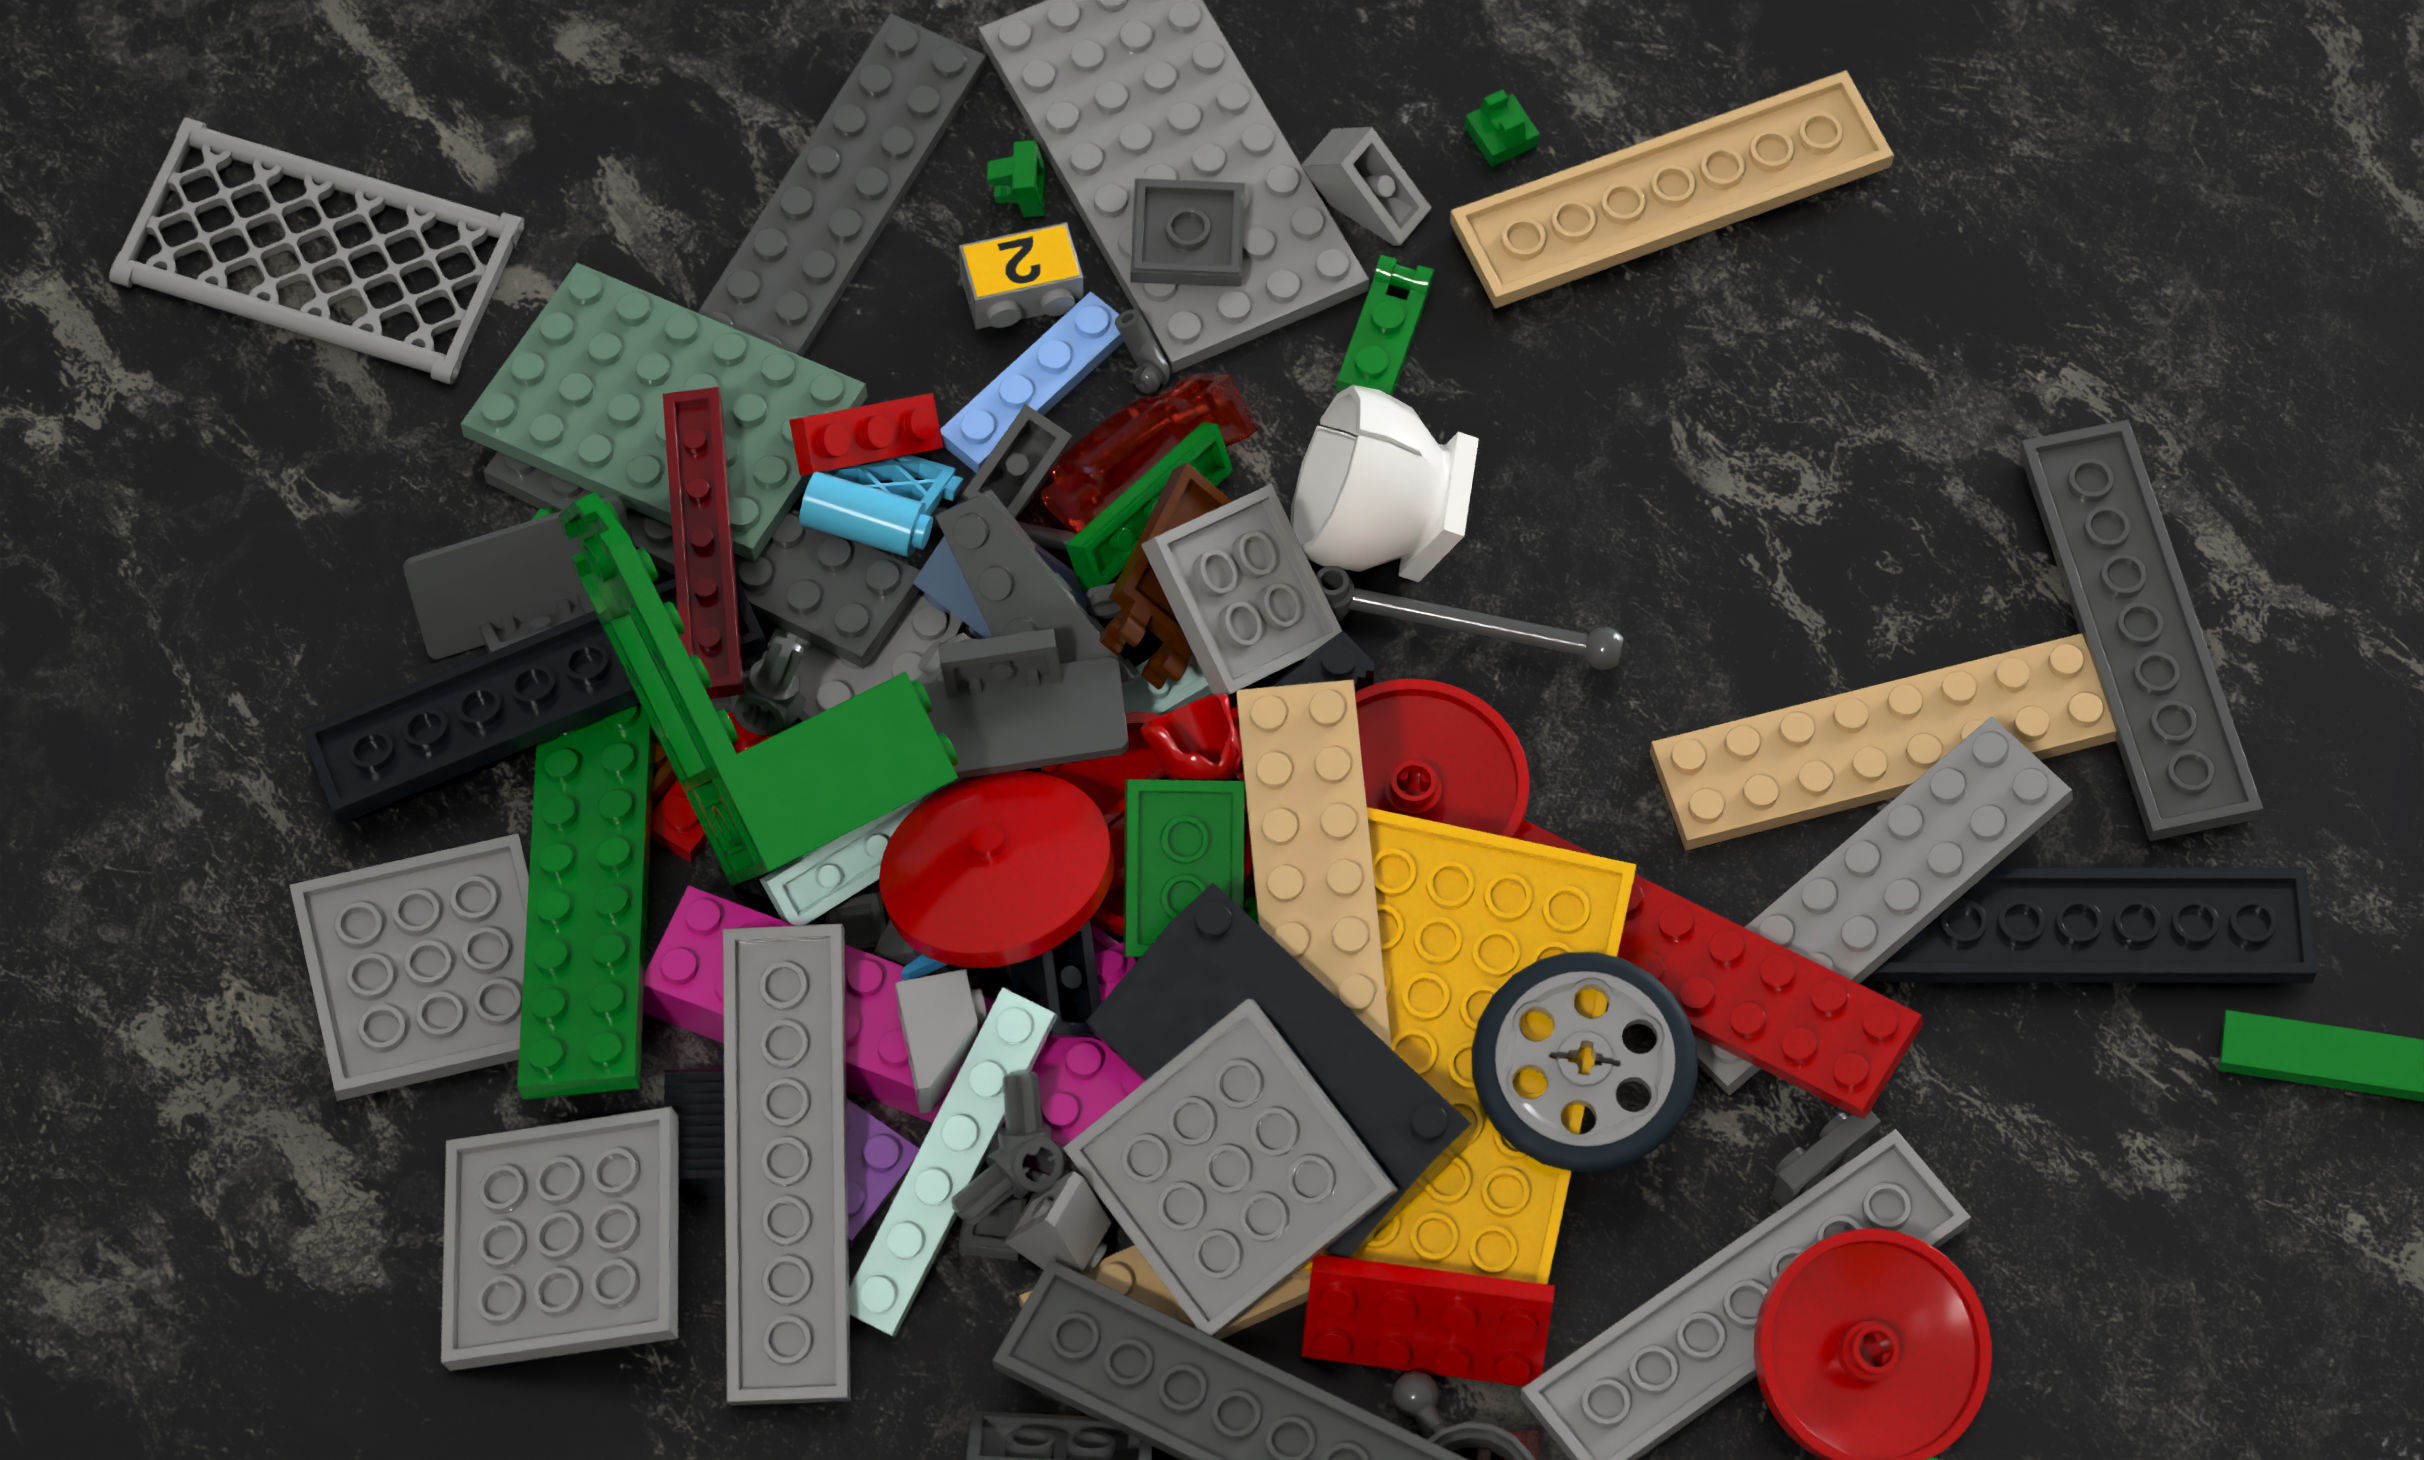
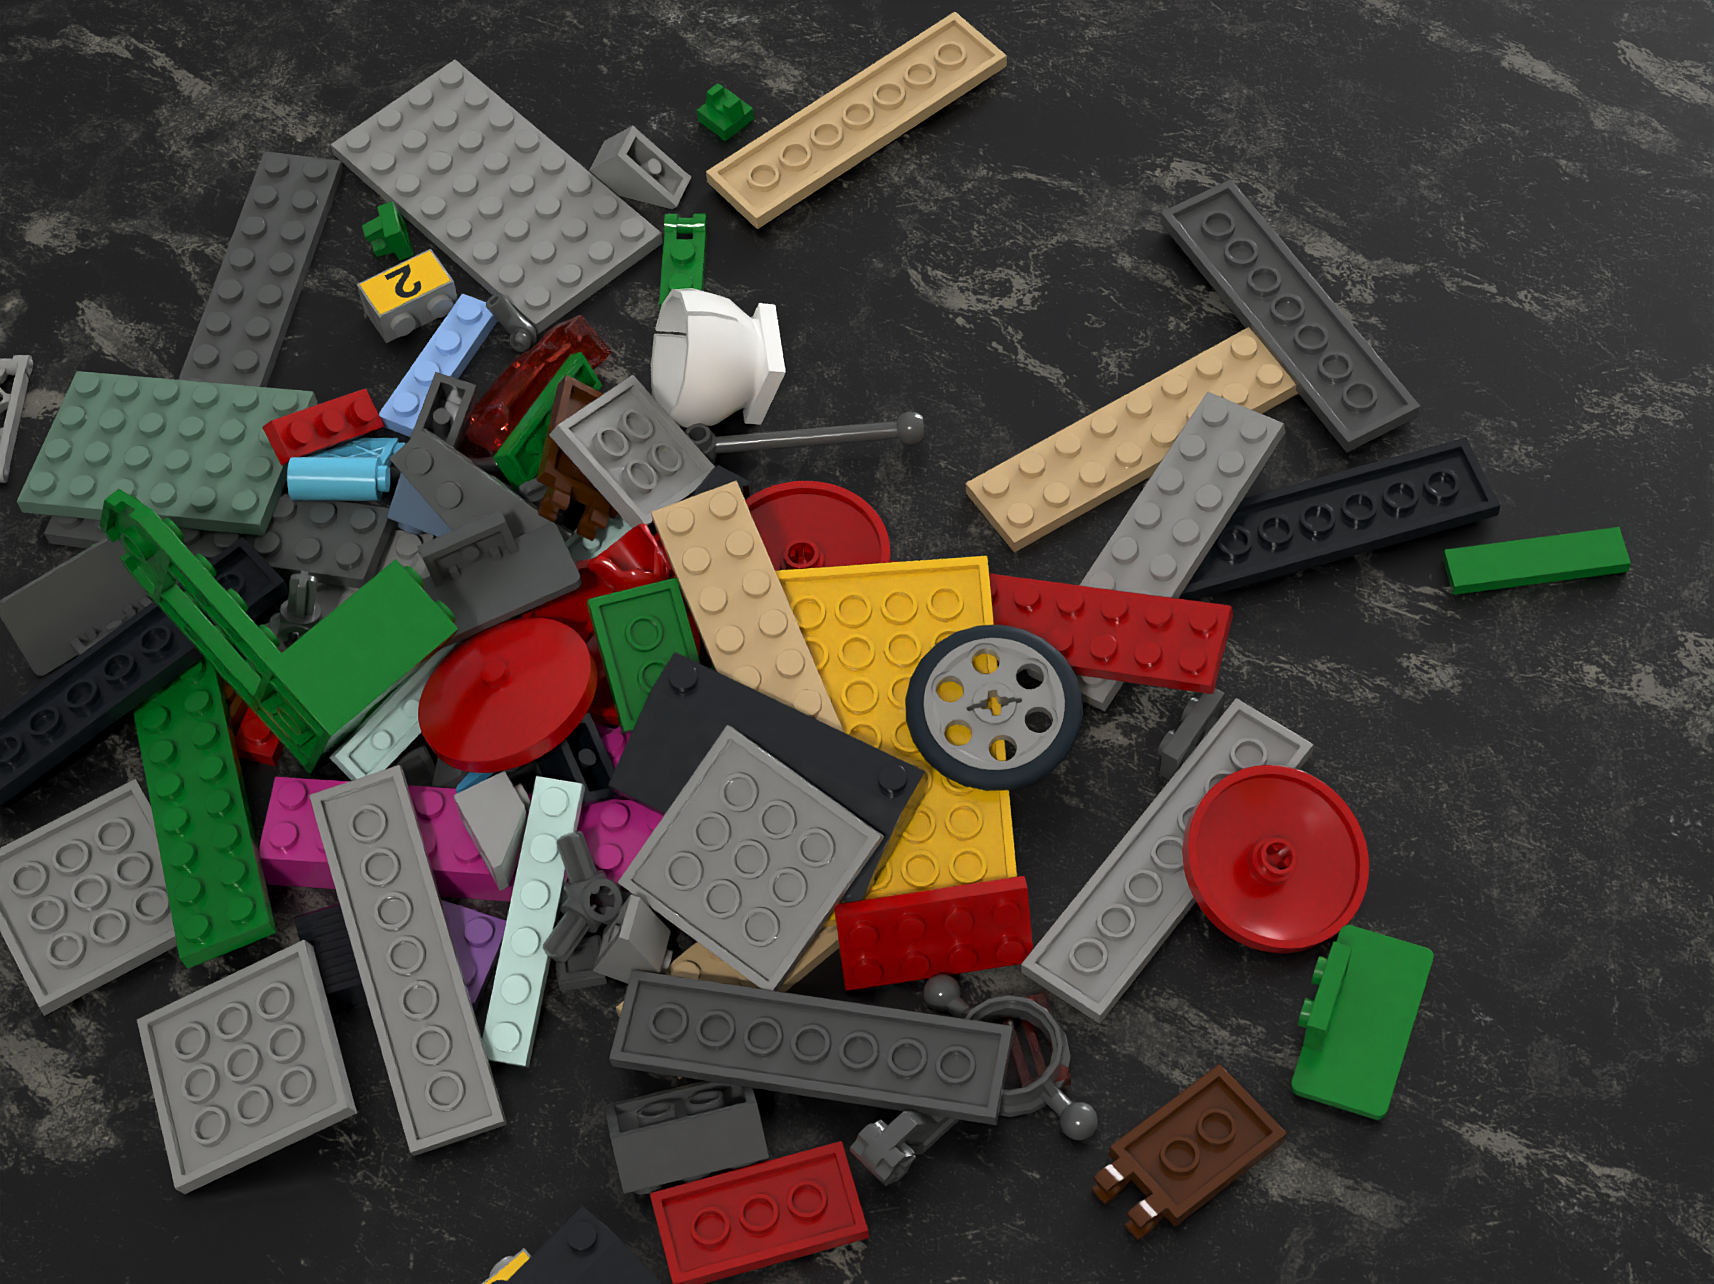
camera: 10 degrees left, 5 degrees down
(703, 535) = (217, 517): dark red plate -> none
(1187, 232) = (521, 234): dark grey tile -> none

